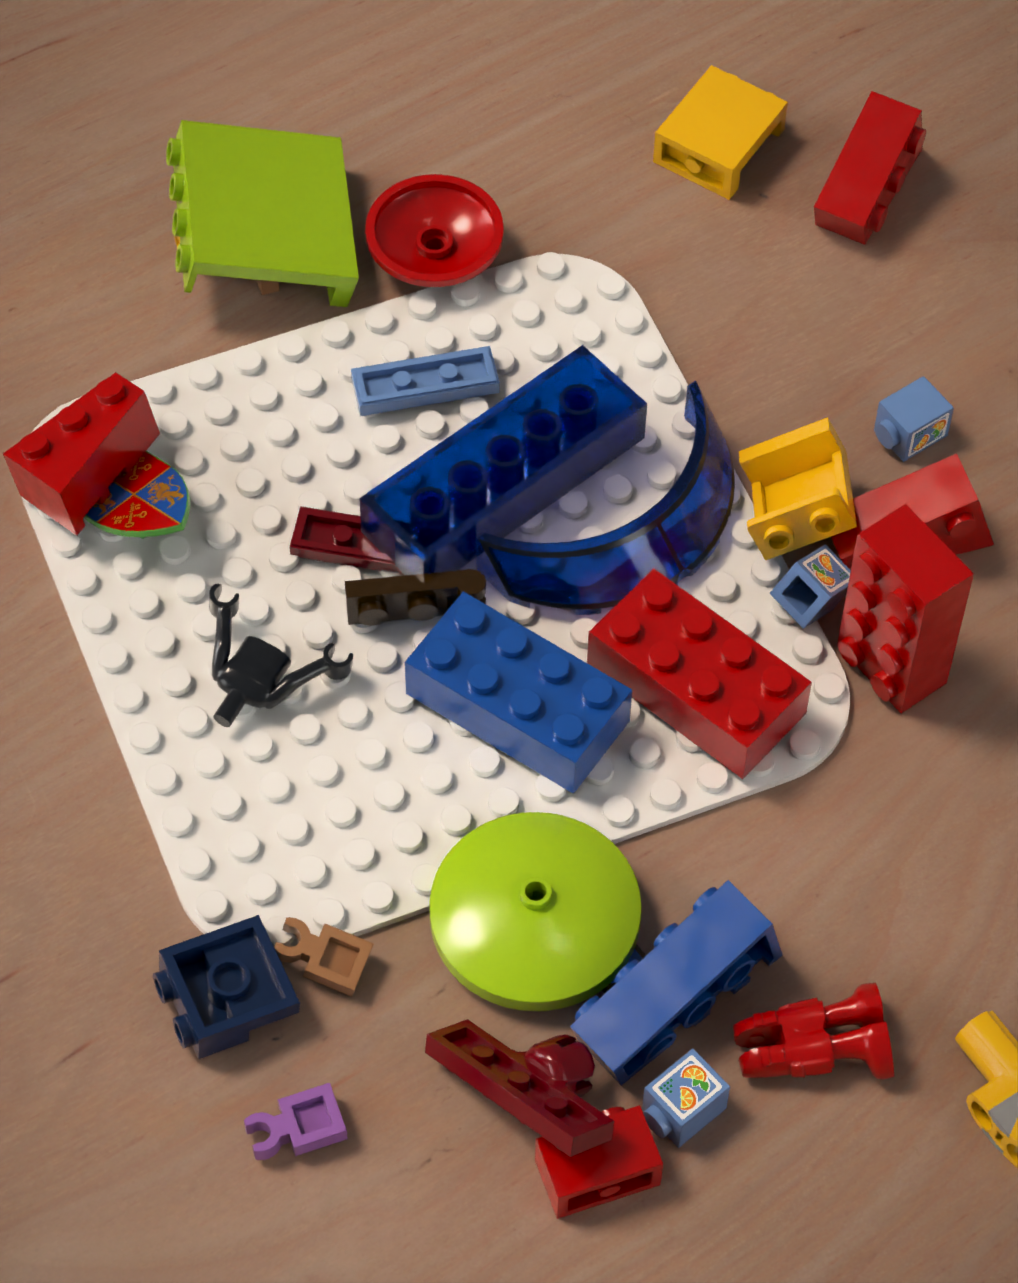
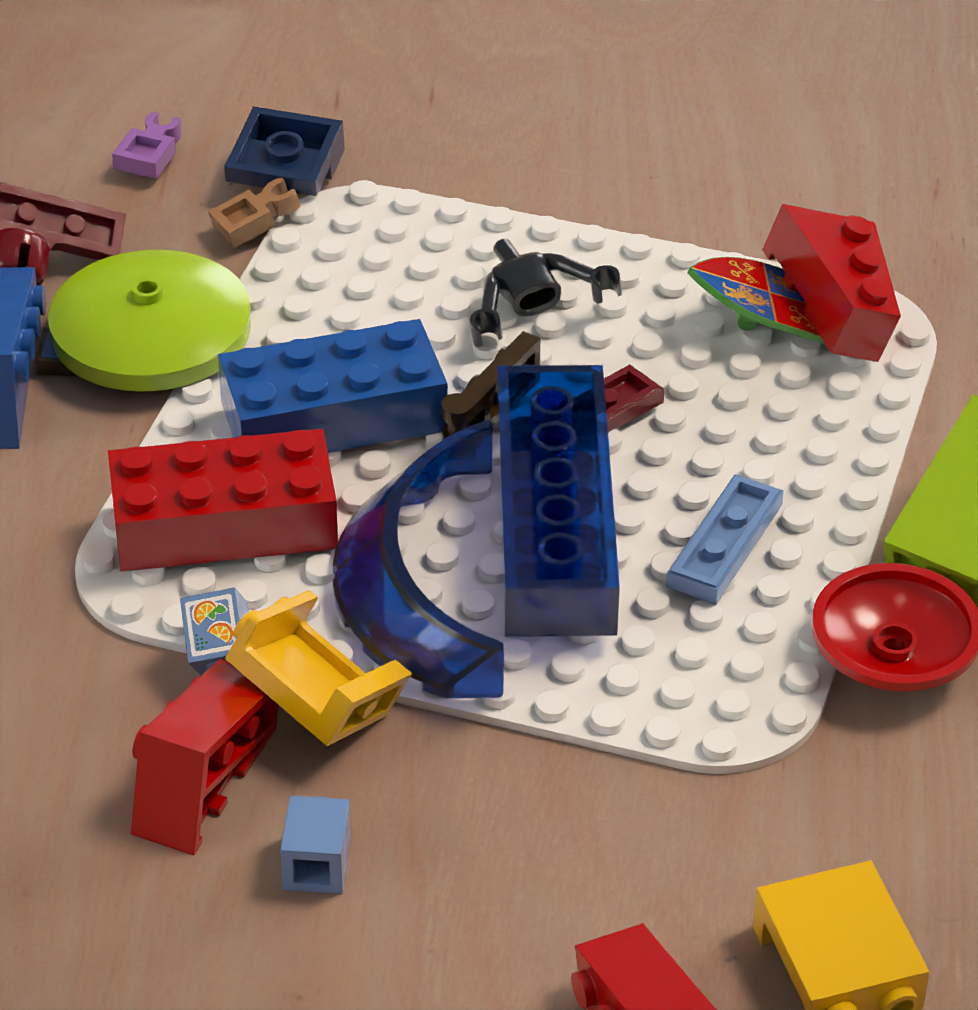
camera: 130 degrees right, 15 degrees down
(903, 608) = (95, 595): red brick -> none

